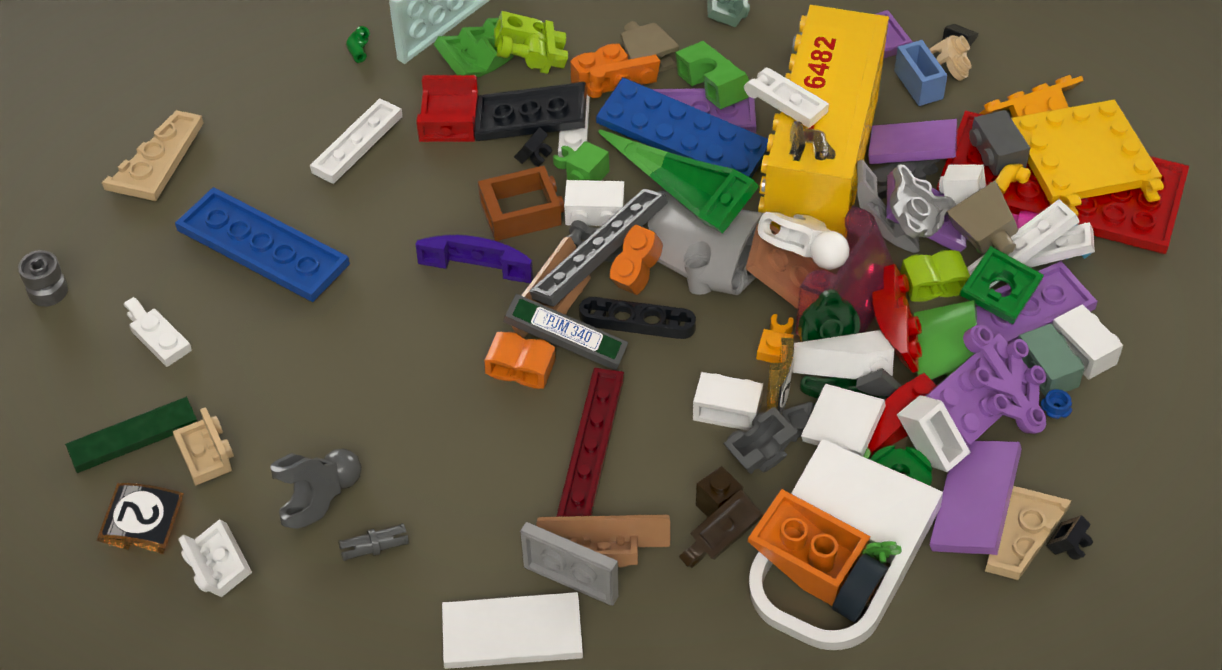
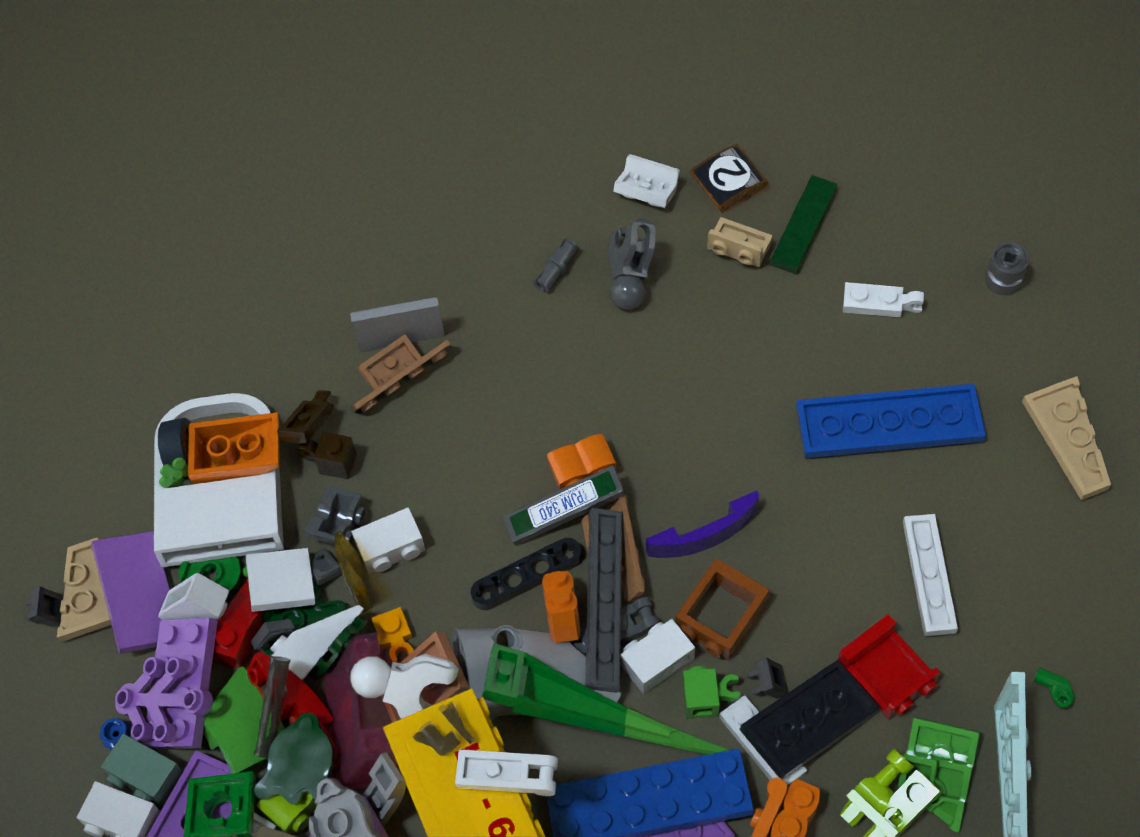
camera: 145 degrees right, 10 degrees up
(511, 630) = (413, 273): white tile -> none
(591, 444) = (469, 441): dark red tile -> none
(912, 307) = (277, 669): none -> clear smoke pin
(921, 269) = (297, 761): none -> dark green tile

